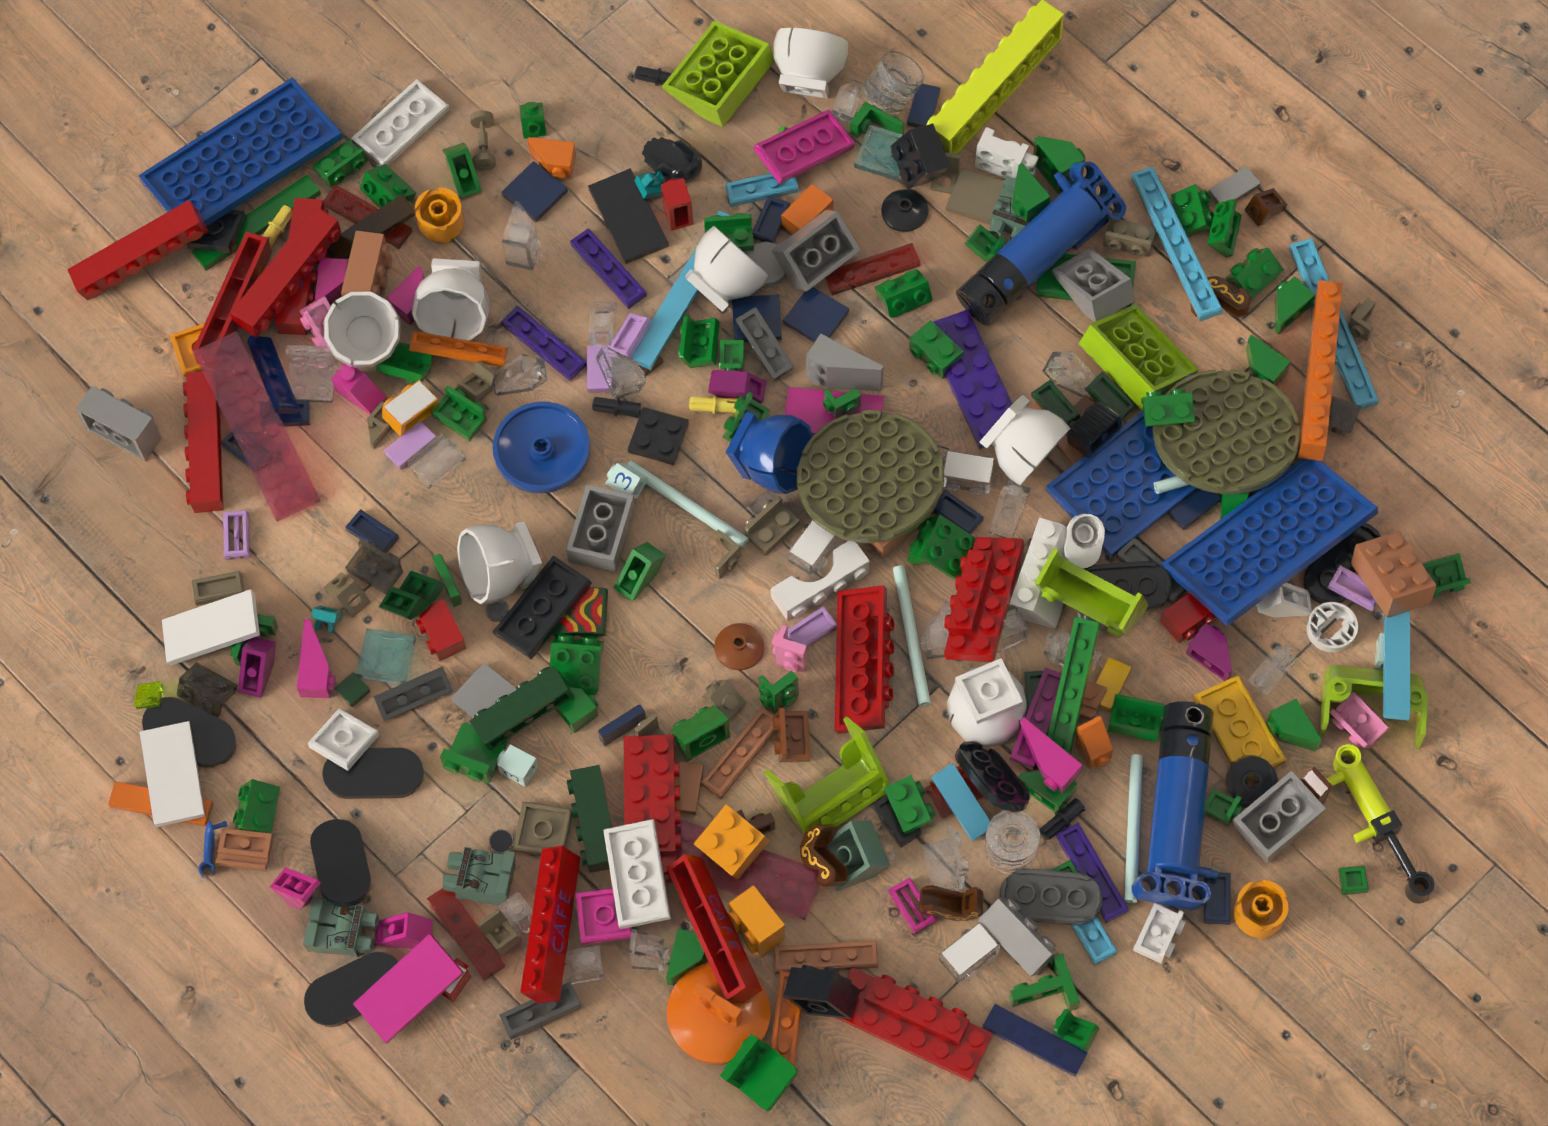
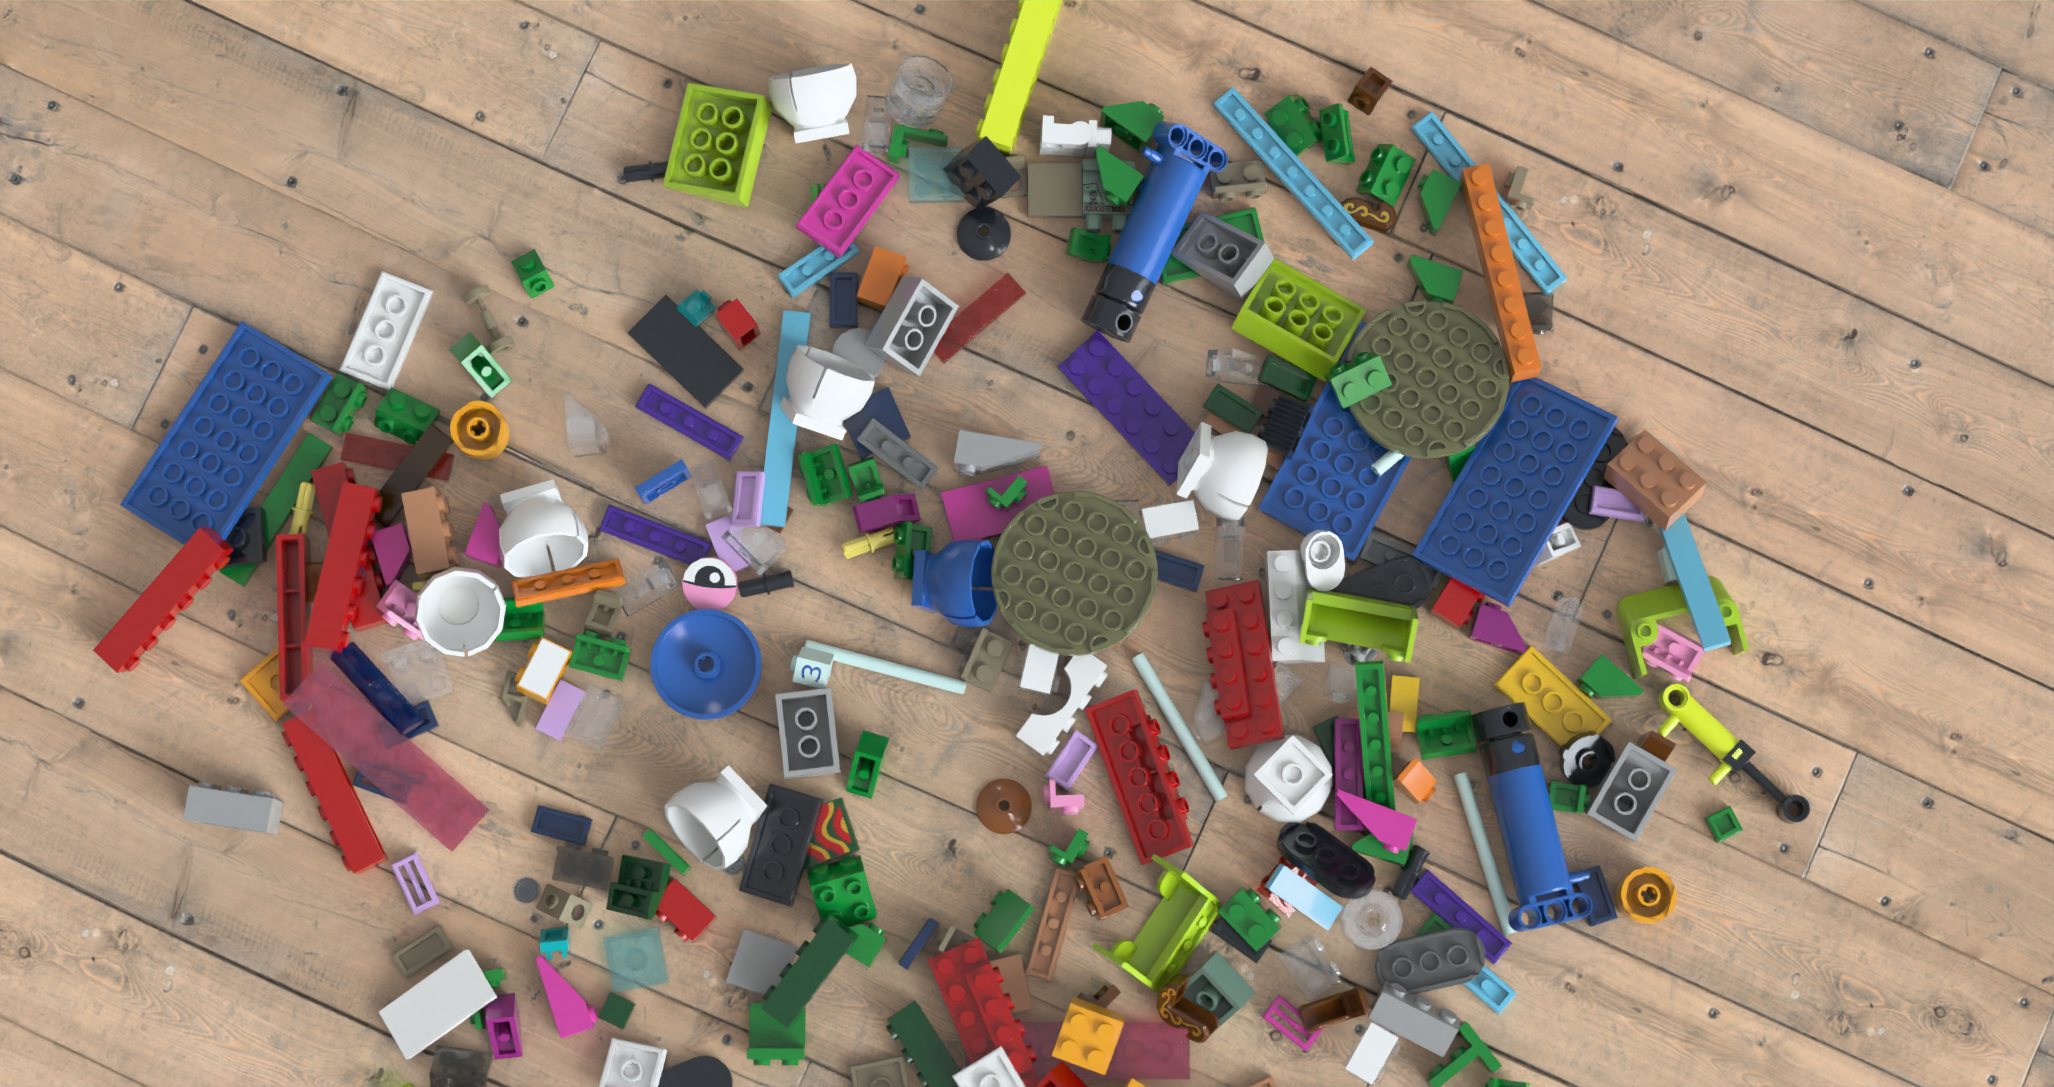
camera: 30 degrees left, 15 degrees up
(321, 571) = (526, 890): none -> clear tile
(357, 388) = (479, 669): dark pink slope -> none
(413, 693) = (684, 992): dark grey plate -> none
(517, 765) = (826, 1030): light aqua brick -> none
(535, 191) = (570, 360): dark blue tile -> none
(554, 156) = (576, 312): orange slope -> none
(566, 298) = (663, 482): none -> blue tile
(572, 389) = (710, 583): none -> tile
(658, 436) = (823, 599): black plate -> none
(673, 159) = (709, 269): black hair -> none
(724, 697) = (1011, 872): dark tan bracket -> none
(731, 559) = (959, 716): dark tan bracket -> none
(735, 227) = (813, 332): green bracket -> none
(815, 315) = (938, 397): dark blue tile -> none
(904, 293) = (1022, 334): green bracket -> none
(923, 105) = (958, 104): dark blue tile -> none
(934, 349) = (1082, 392): green bracket -> none
(941, 545) = (1175, 618): green bracket -> none
(1158, 933) = (1553, 958): white bracket -> none
(1193, 507) = (1416, 476): dark blue tile -> none
(1235, 186) = (1328, 79): light grey tile -> none
(1336, 611) = (1622, 542): white piece -> none
(1447, 573) = (1704, 453): green bracket -> none

